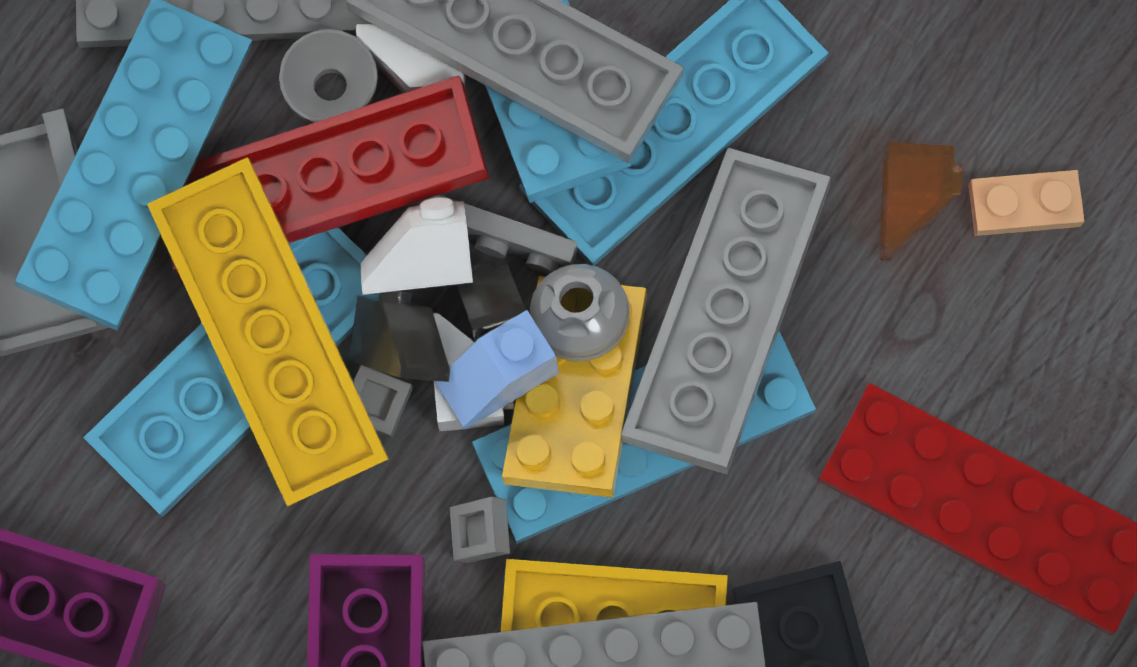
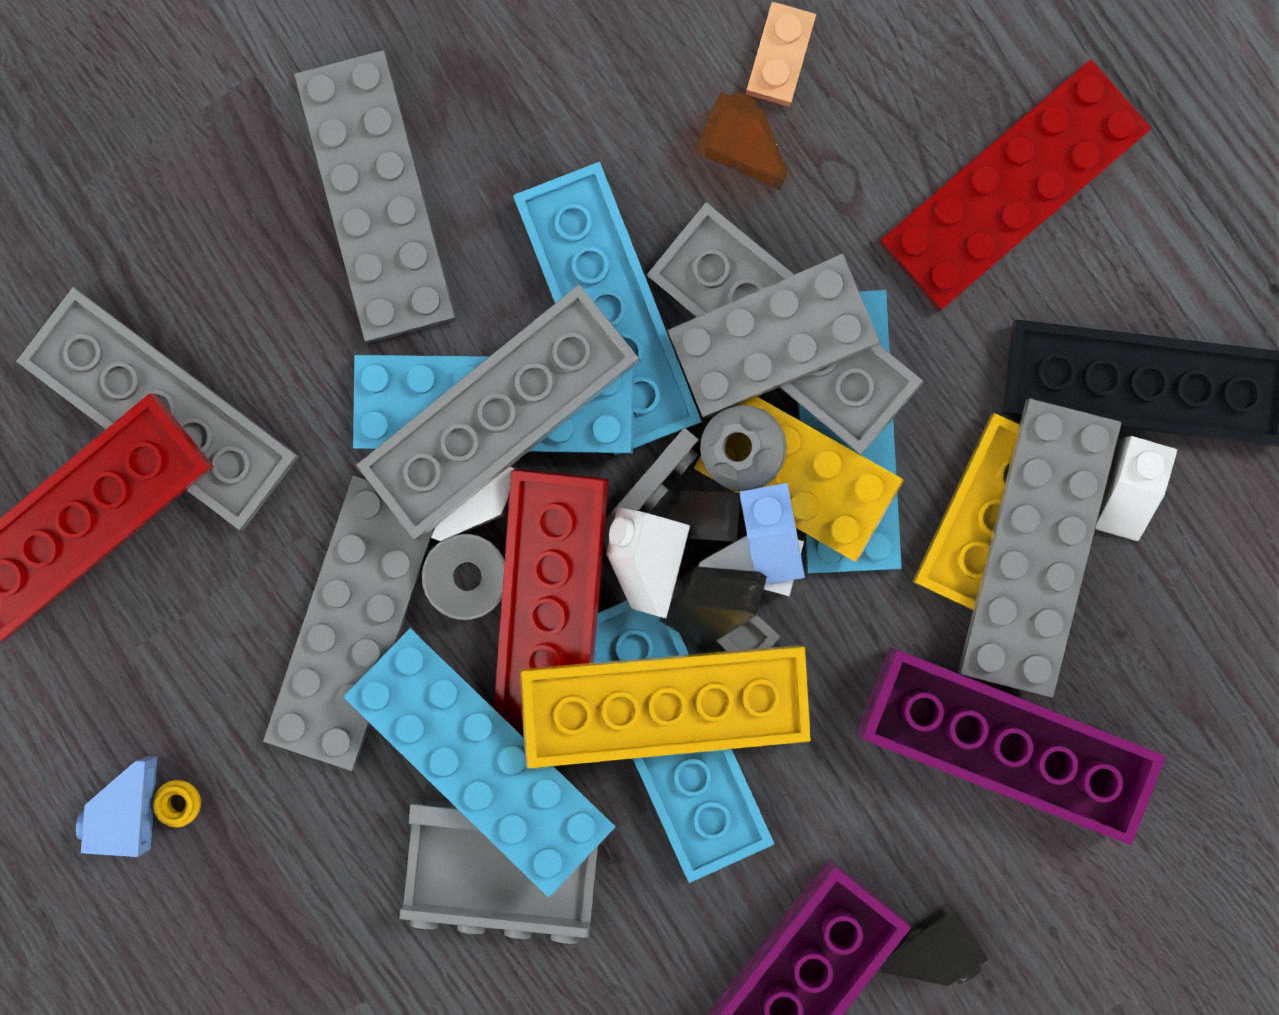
camera: 65 degrees left, 10 degrees up
(479, 530) = (883, 594): light grey plate -> none
(712, 297) = (774, 336): none -> light grey plate

